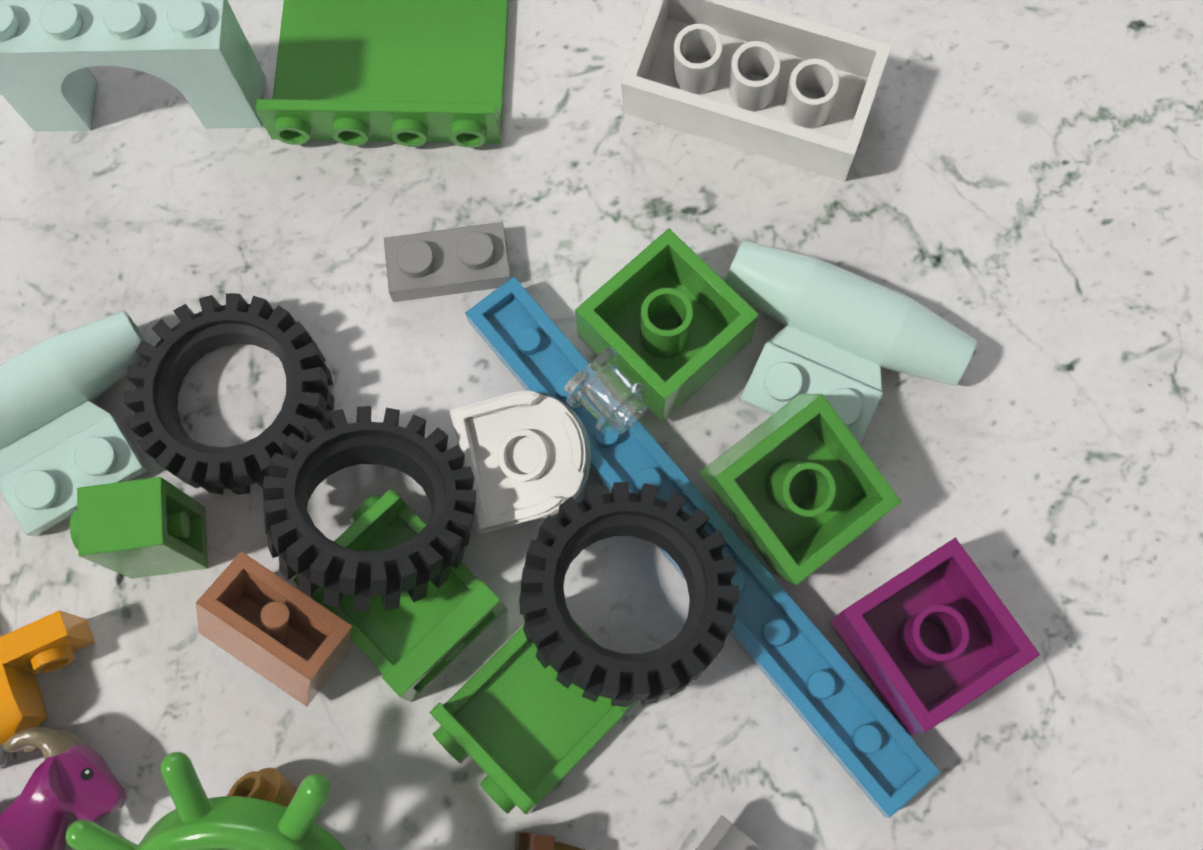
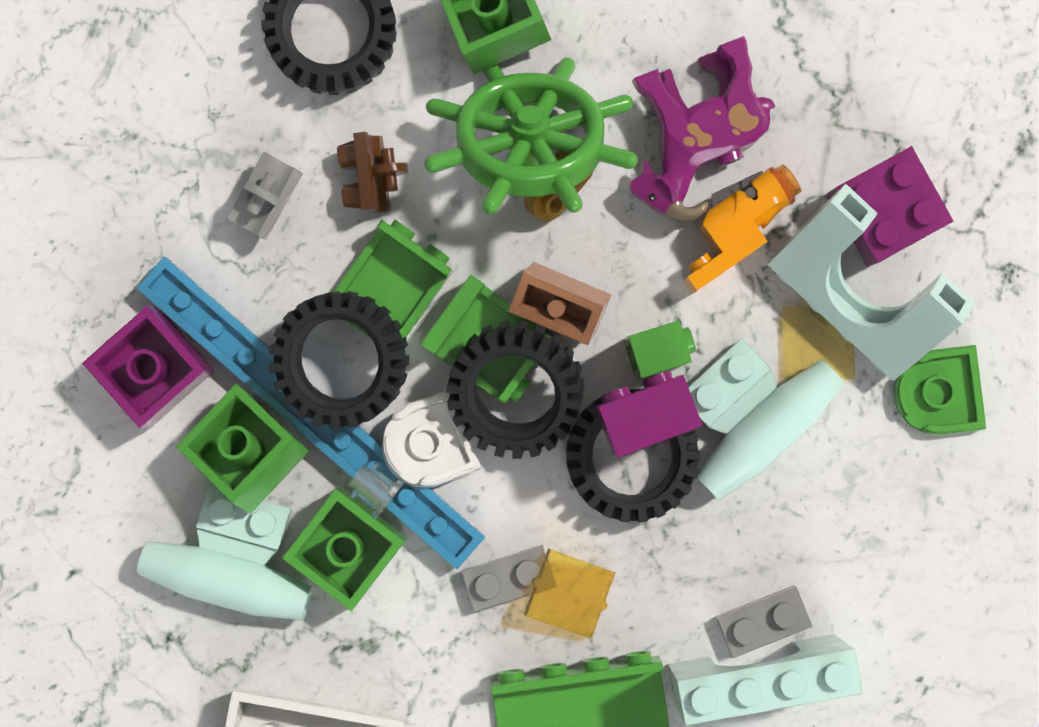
camera: 170 degrees right, 15 degrees up
(117, 156) = (764, 621): none -> light grey plate
(165, 419) = (647, 415): none -> magenta brick
(366, 225) = (569, 593): none -> clear yellow piece

